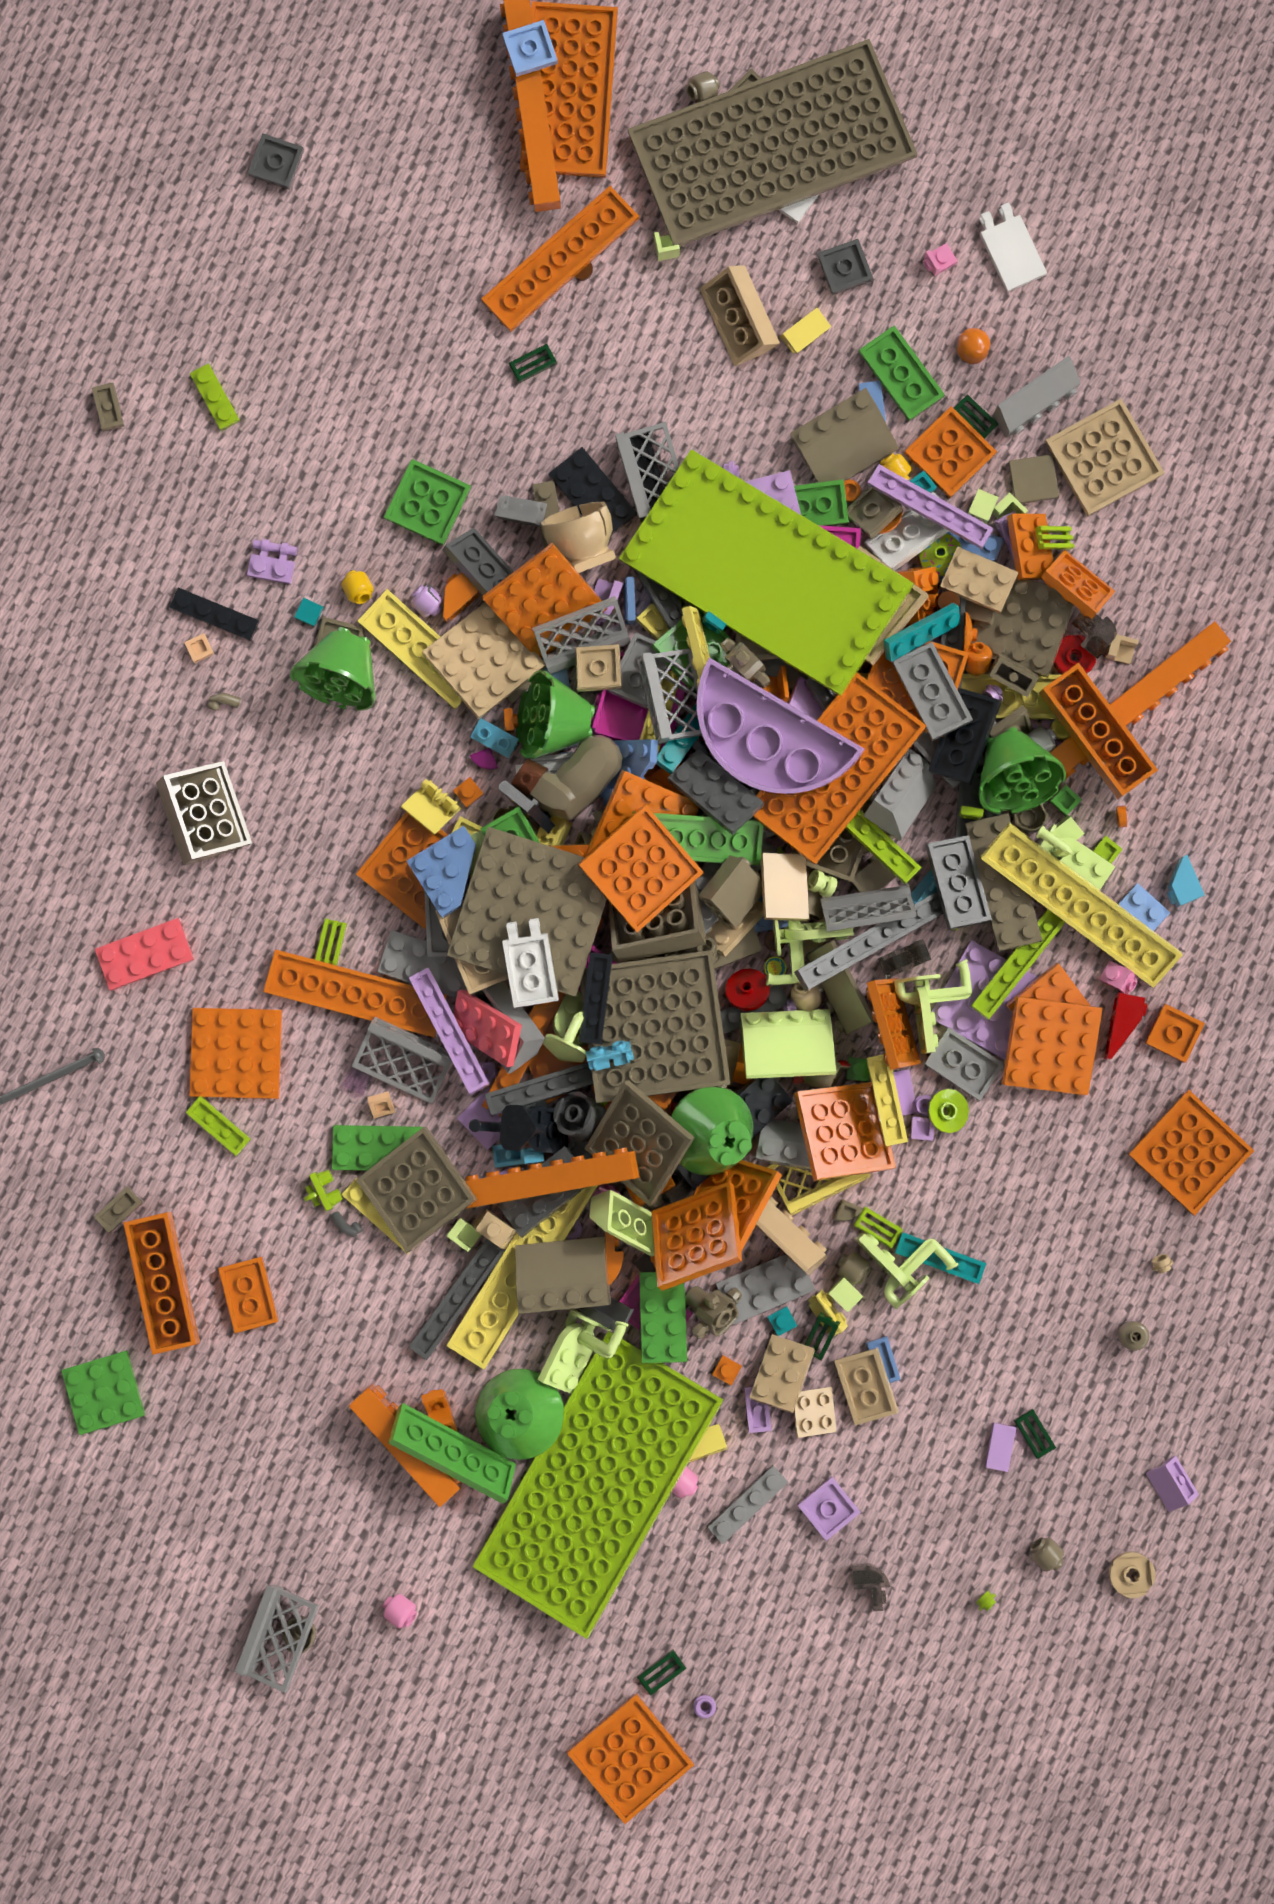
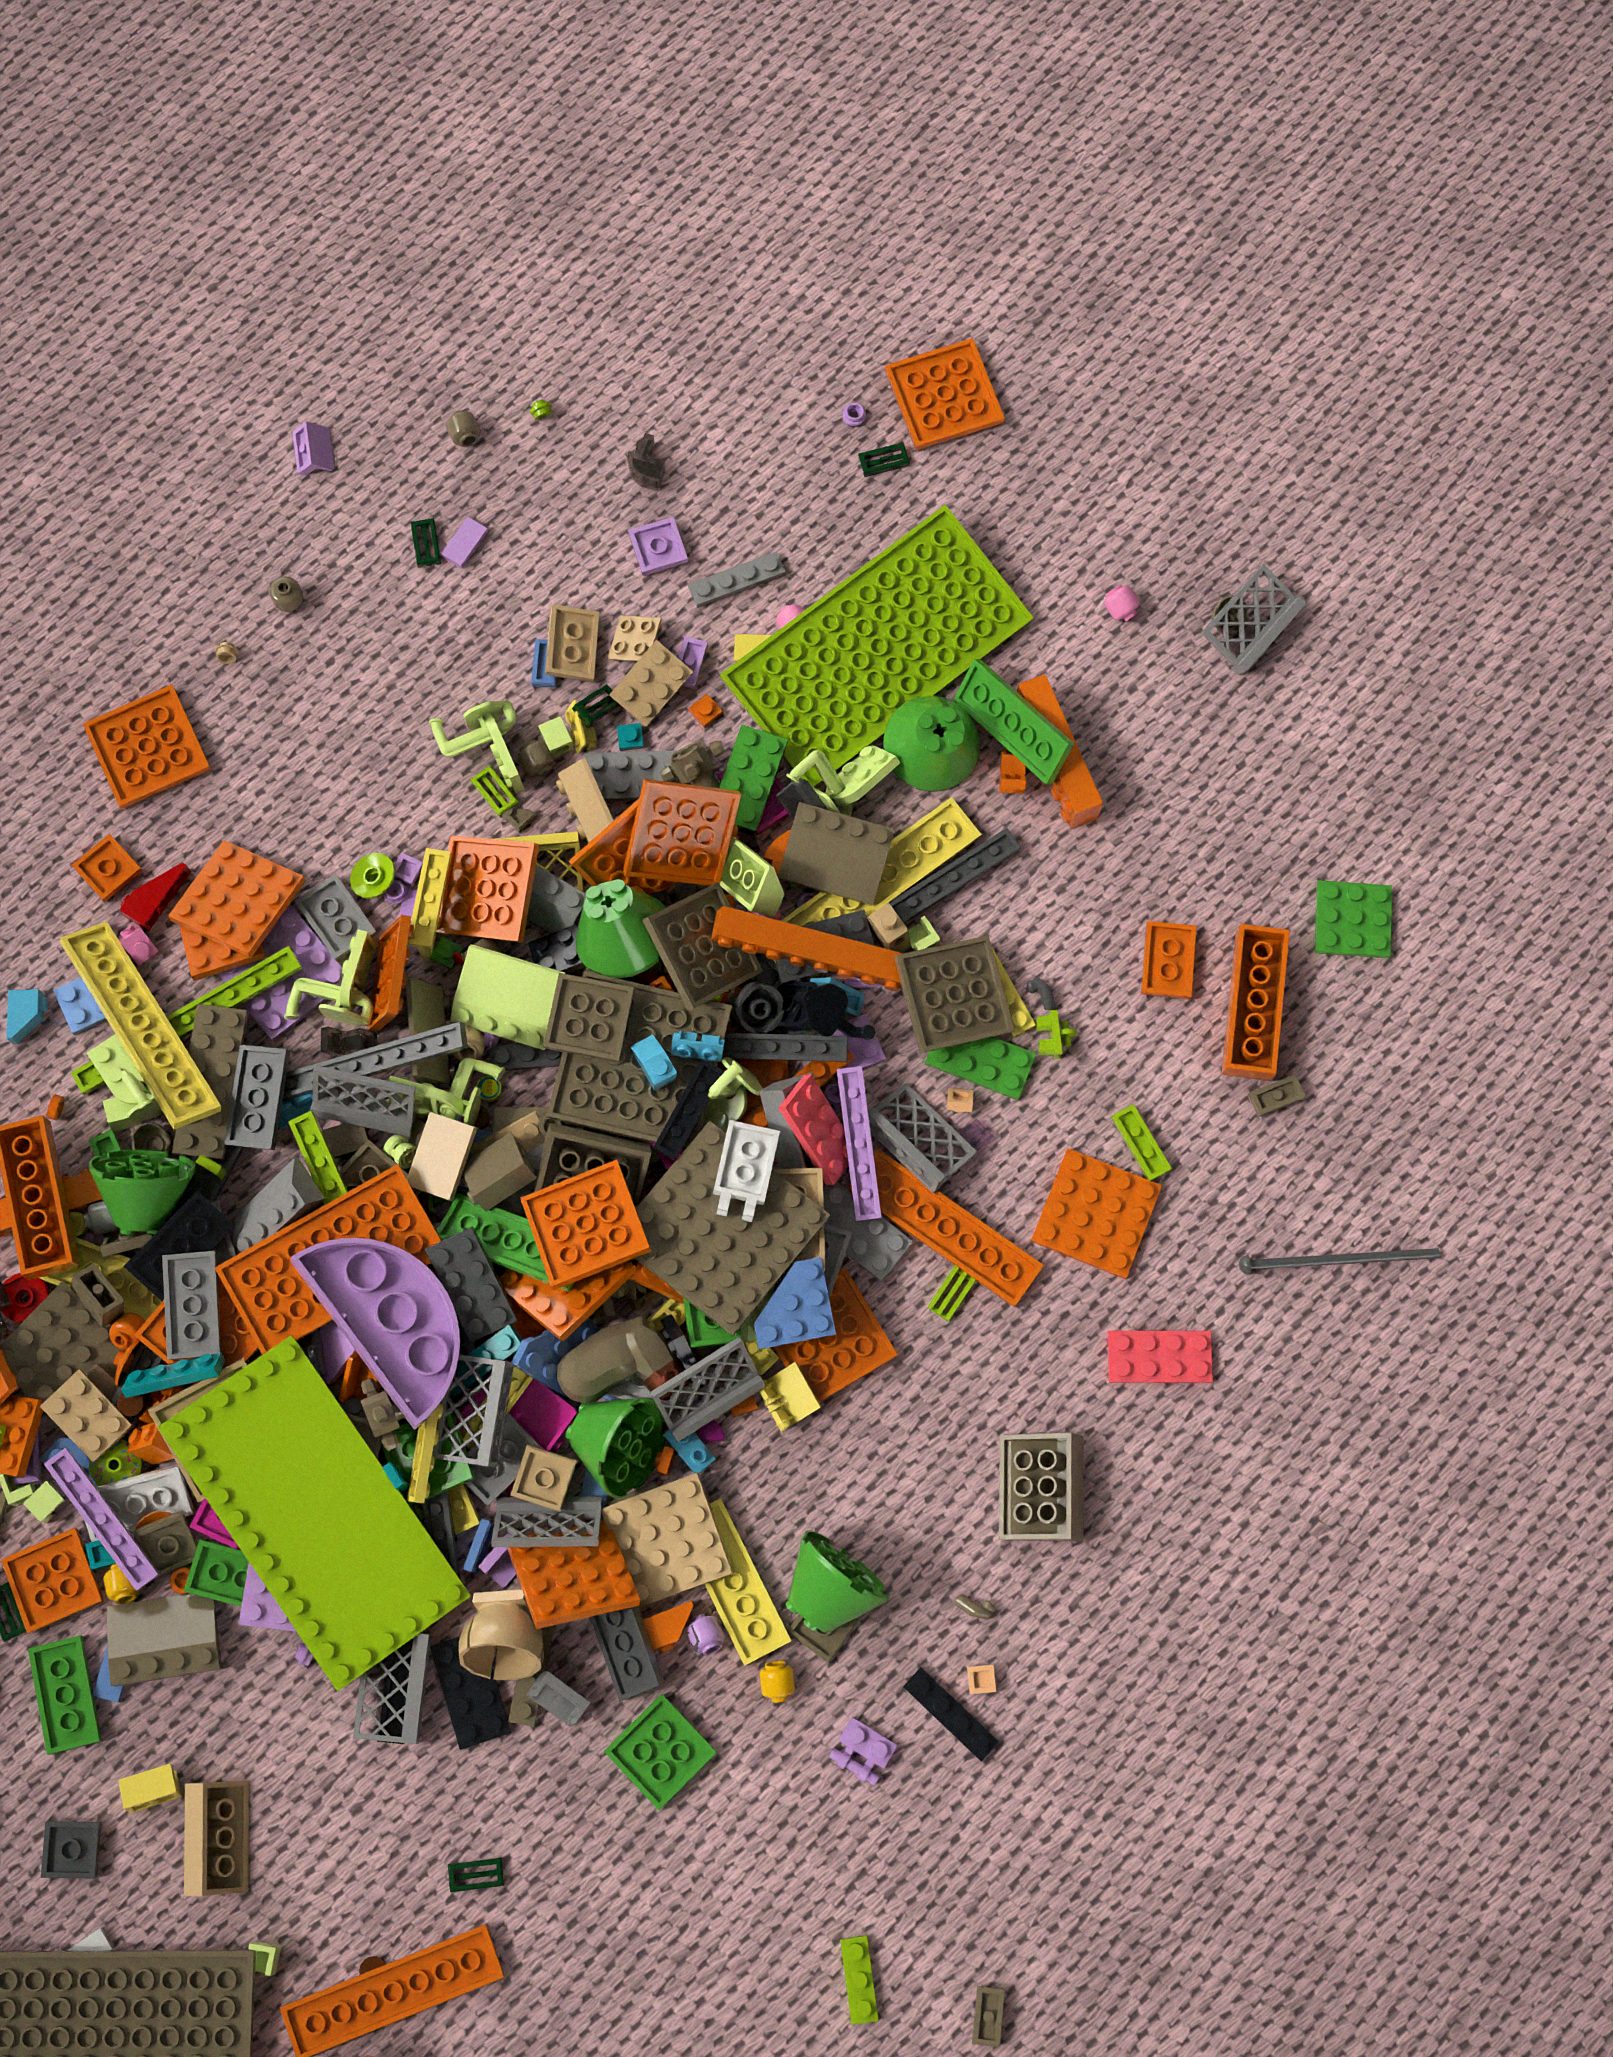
camera: 155 degrees left, 10 degrees down
(309, 612) = (842, 1674): teal tile -> none
(484, 782) = (714, 1400): none -> light grey fence
(640, 1027) = (654, 1062): none -> medium azure slope
(708, 1043) = (588, 1017): none -> dark tan plate
(747, 999) = (531, 1062): red plate -> none
(967, 1268) = (418, 717): teal plate -> none
(994, 692) = (129, 1285): lavender plate -> none
(1141, 1583) = (384, 373): tan plate -> none

